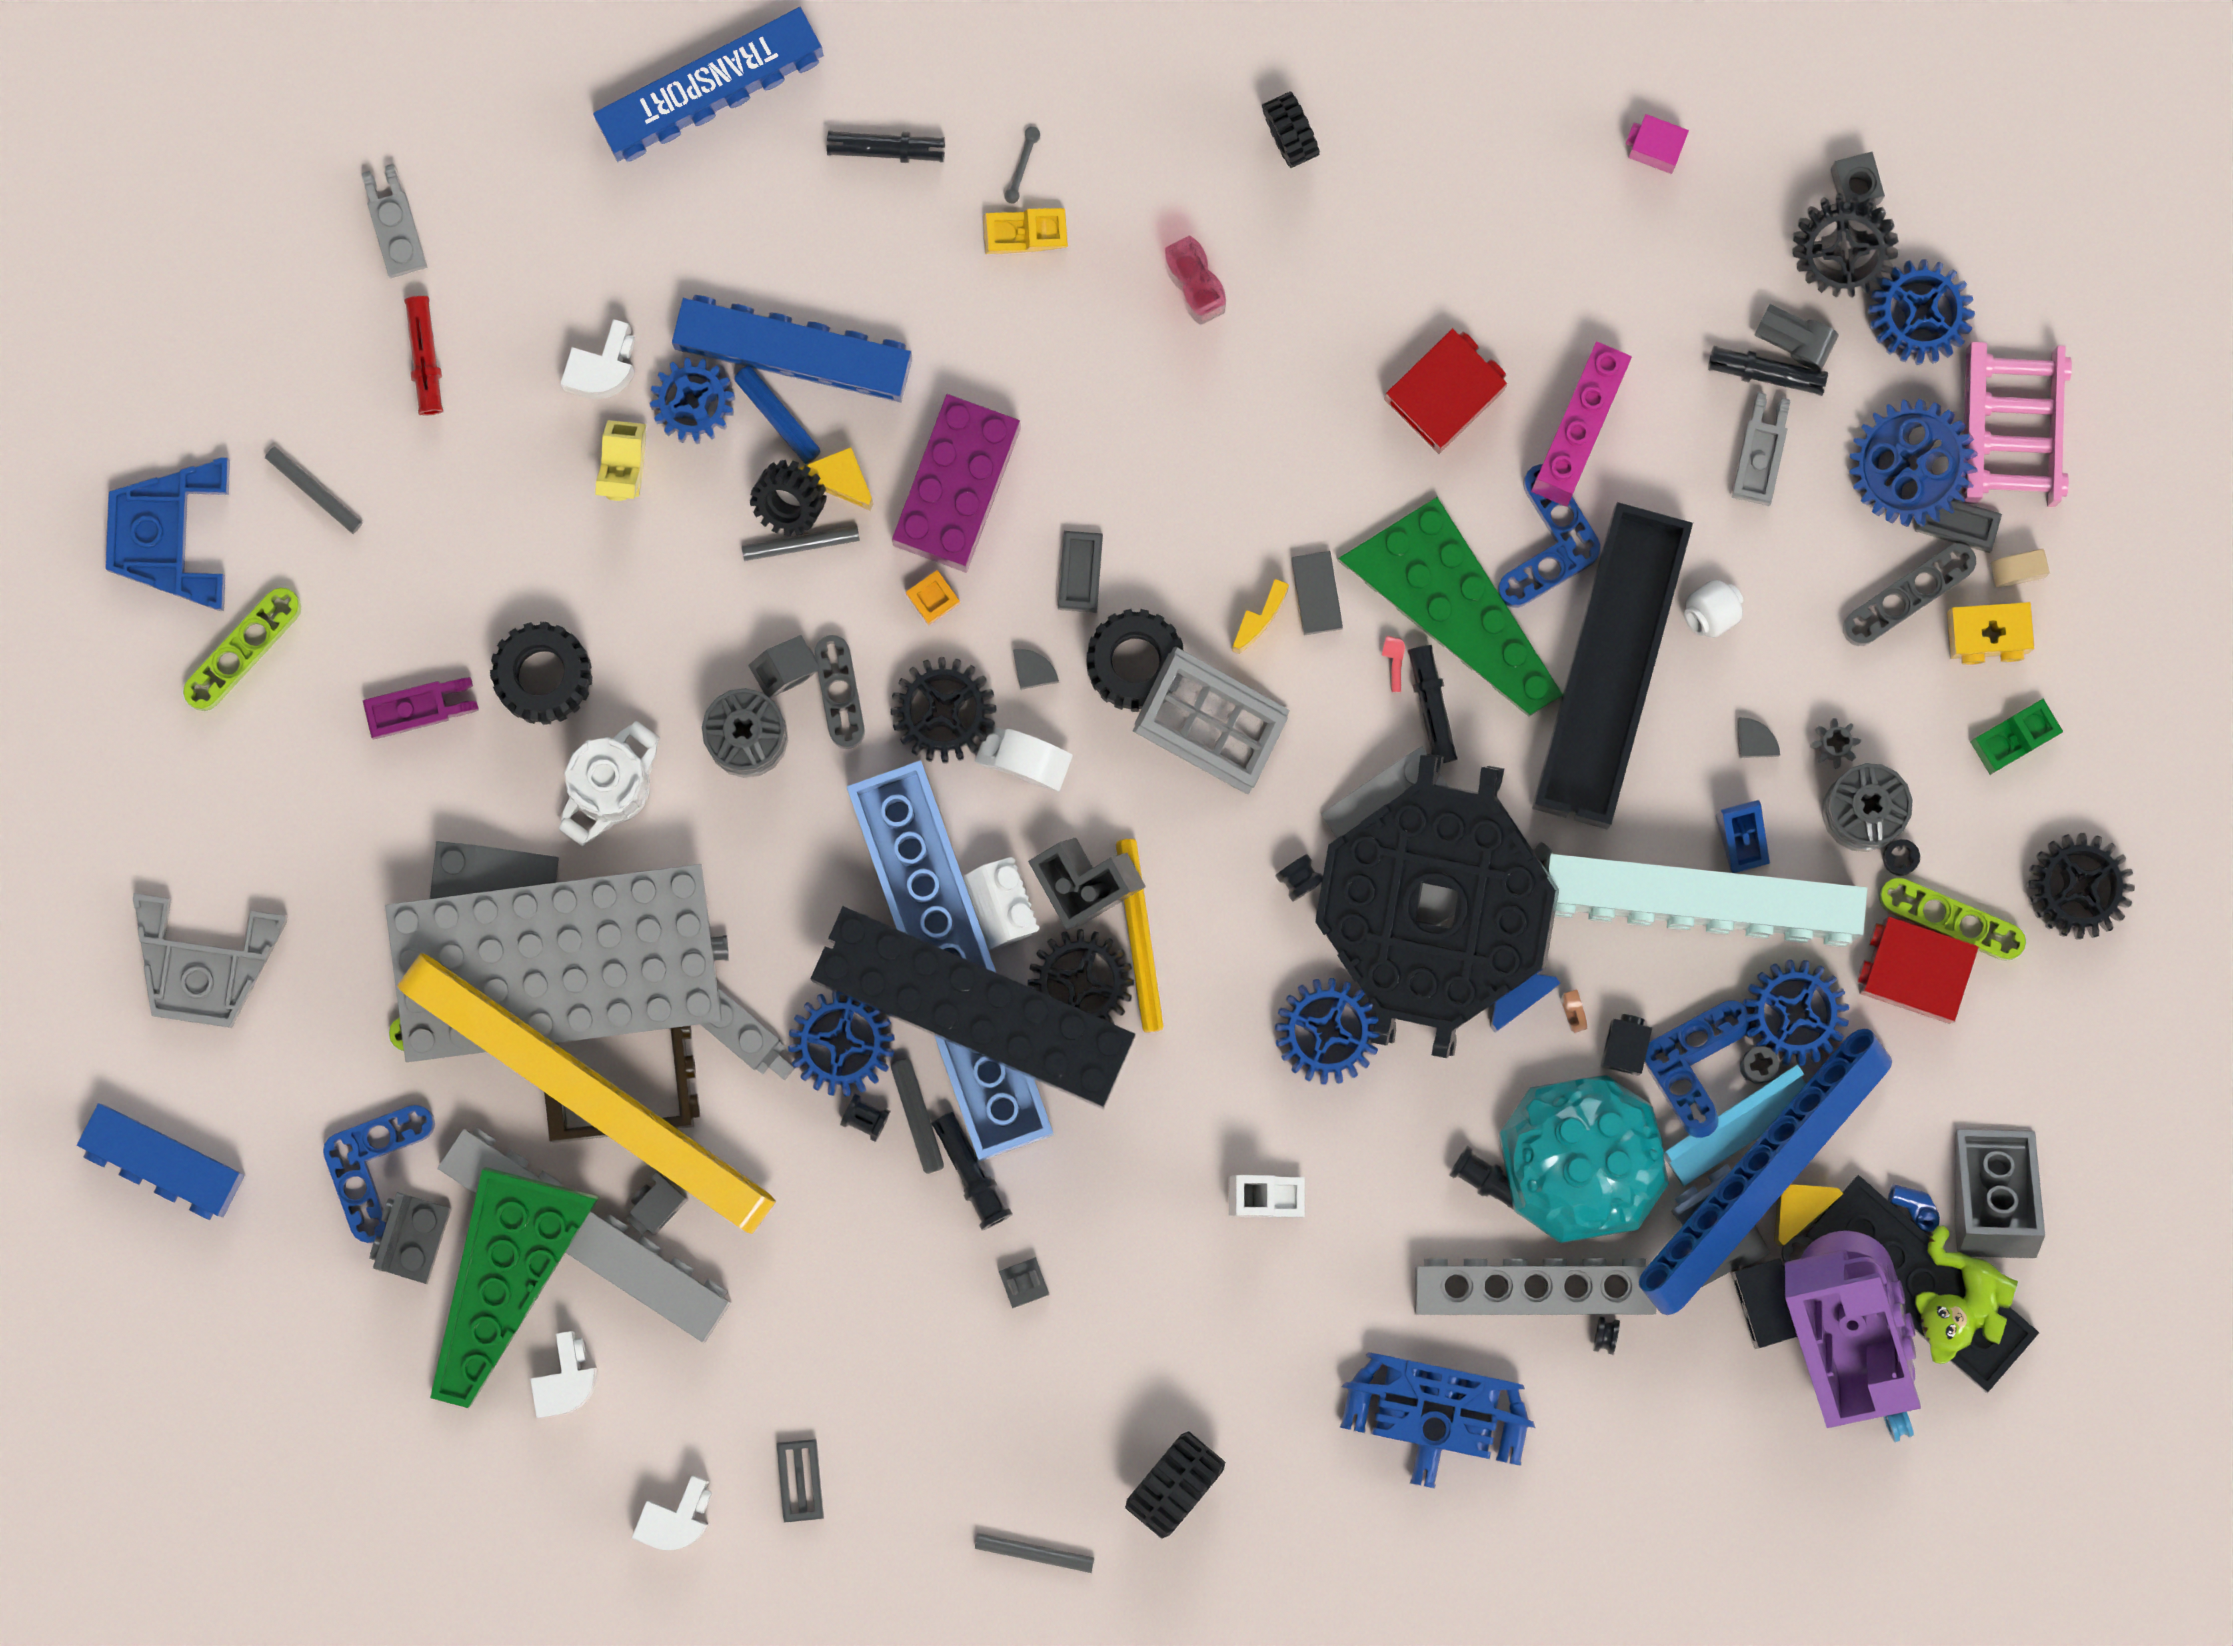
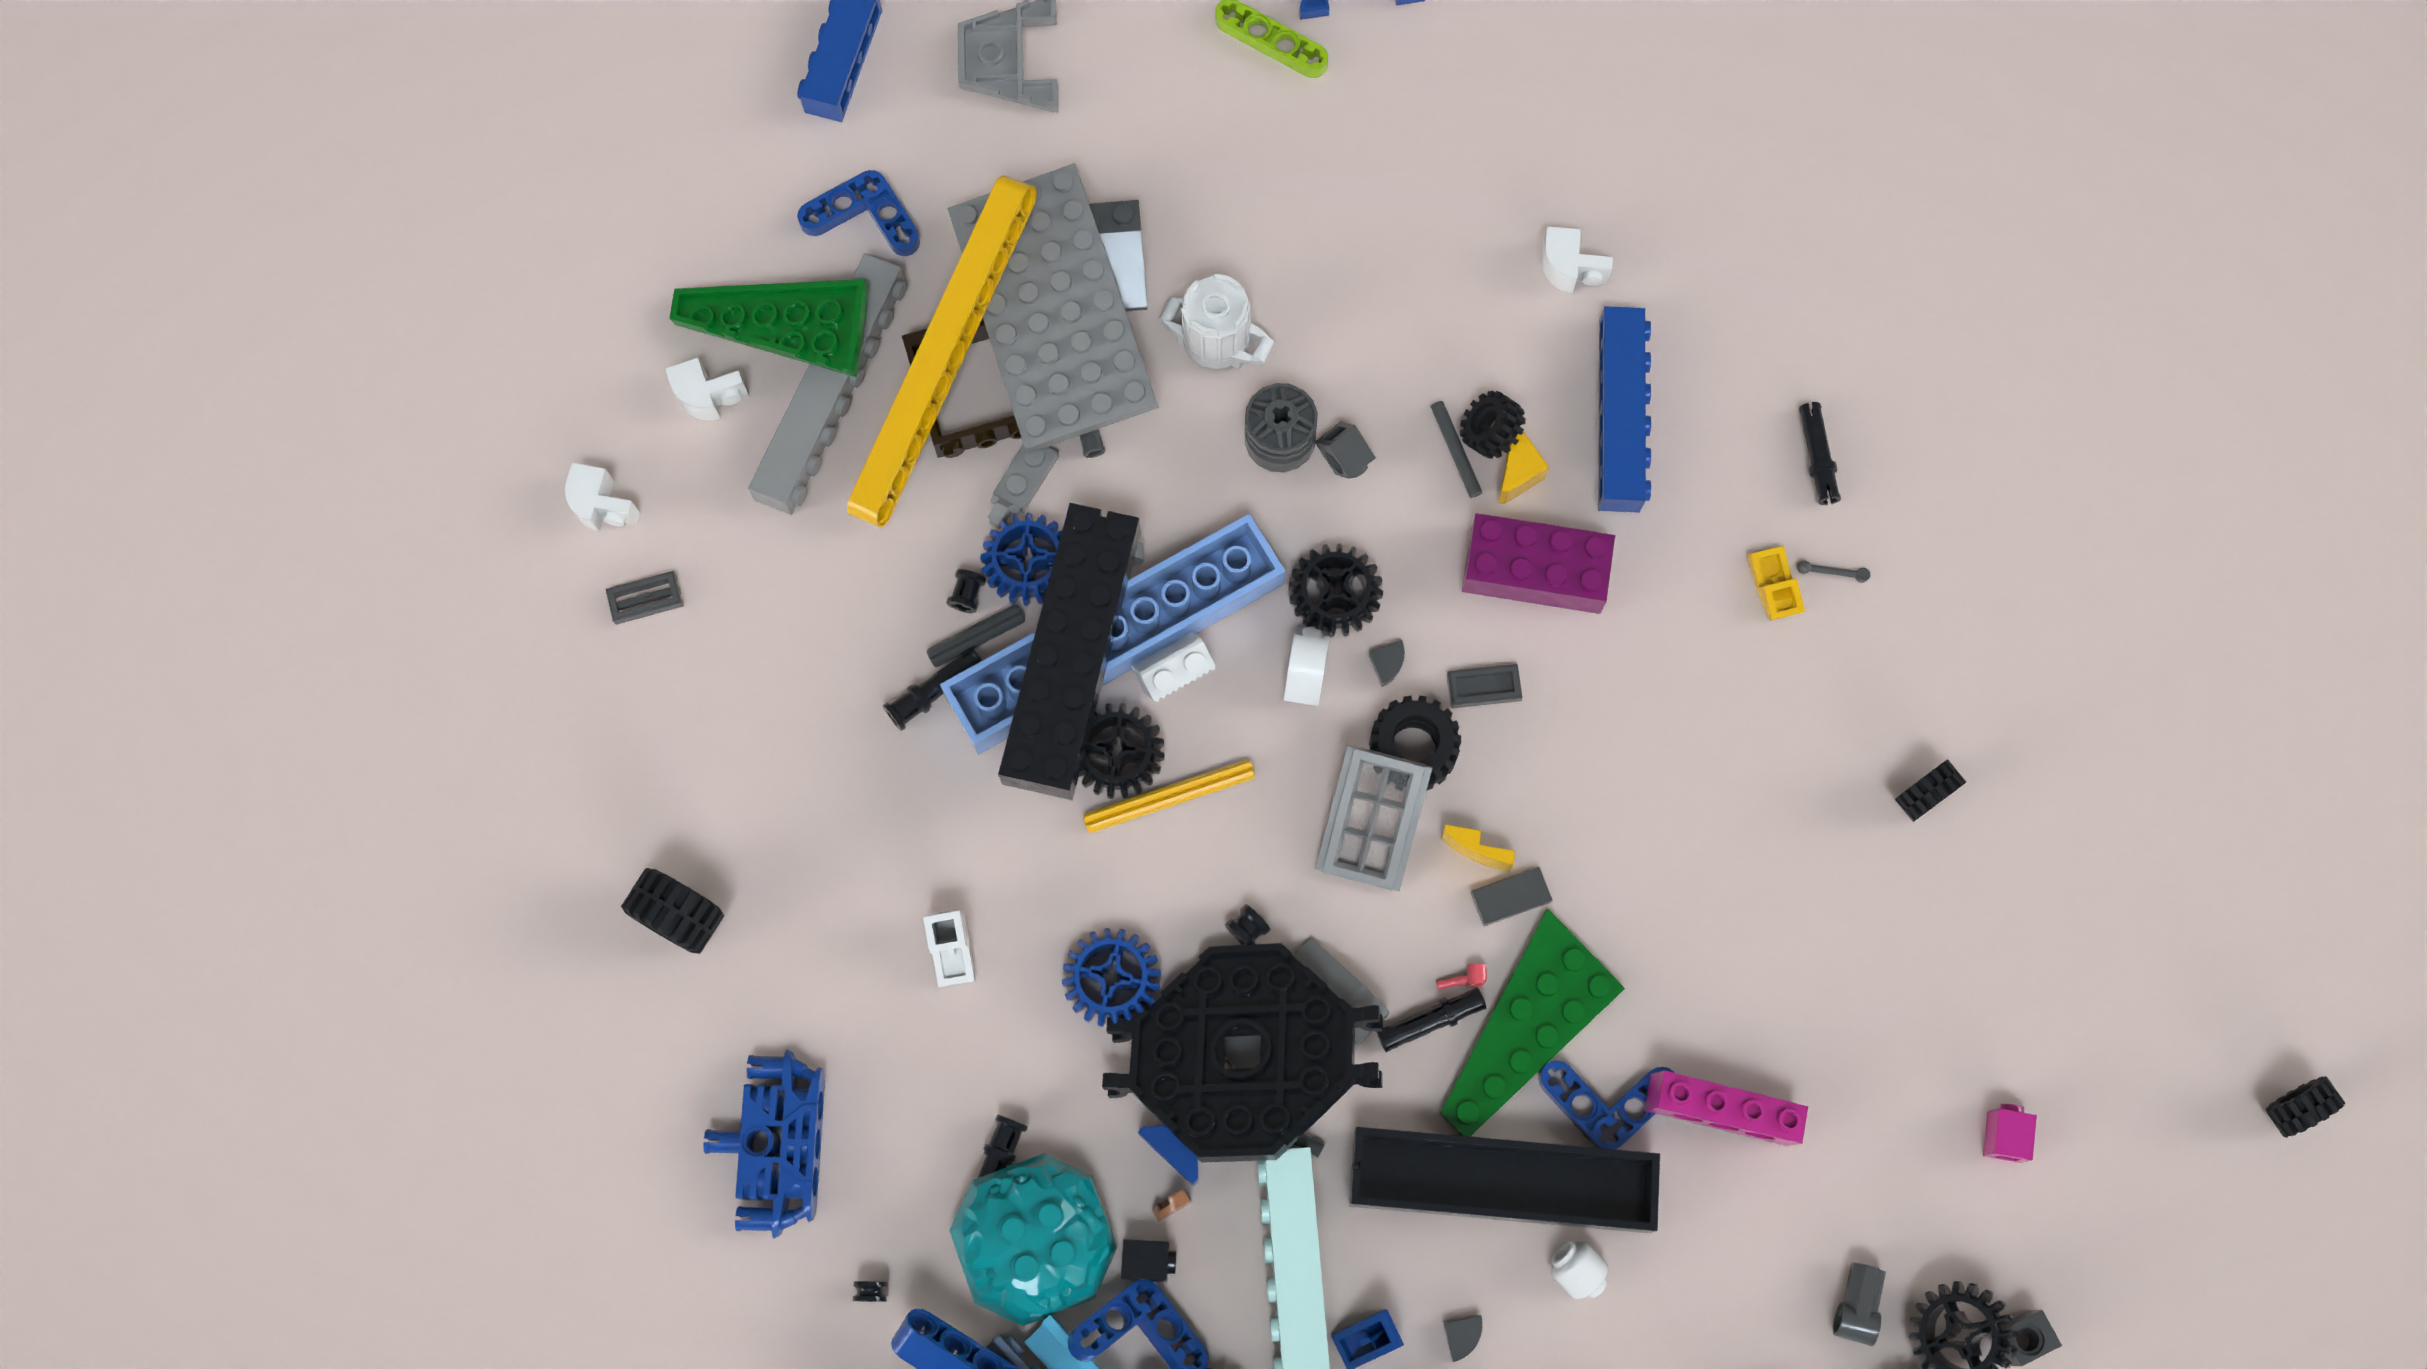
camera: 80 degrees right, 10 degrees down
(313, 490) = (1414, 67): dark grey bar -> none
(394, 226) = (1650, 85): light grey hinge -> none
(410, 1237) = (805, 244): dark grey bracket -> none
(415, 707) = (1250, 173): magenta hinge -> none
(423, 356) = (1542, 126): red pin -> none
(526, 643) = (1298, 235): black tyre -> none
(621, 460) = (1492, 291): light yellow brick -> none
(655, 1205) = (858, 432): dark grey brick -> none
(708, 85) = (1834, 301): blue brick -> none
(708, 393) = (1558, 333): blue gear -> none
(777, 414) = (1564, 408): blue axle -> none
(835, 722) = (1360, 503): dark grey beam -> none
(932, 597) = (1433, 564): light orange plate -> none
(1024, 1283) = (843, 753): dark grey tile -> none
(1034, 1553) = (605, 806): dark grey bar -> none
(1078, 888) = (1200, 730): dark grey brick -> none
(1189, 271) = (1770, 732): clear pink brick -> none
(1433, 1299) = (879, 1121): light grey brick -> none
(1447, 390) = (1726, 979): red brick -> none
(1750, 367) = (1820, 1282): black pin -> none
(1761, 454) = (1738, 1290): light grey hinge -> none

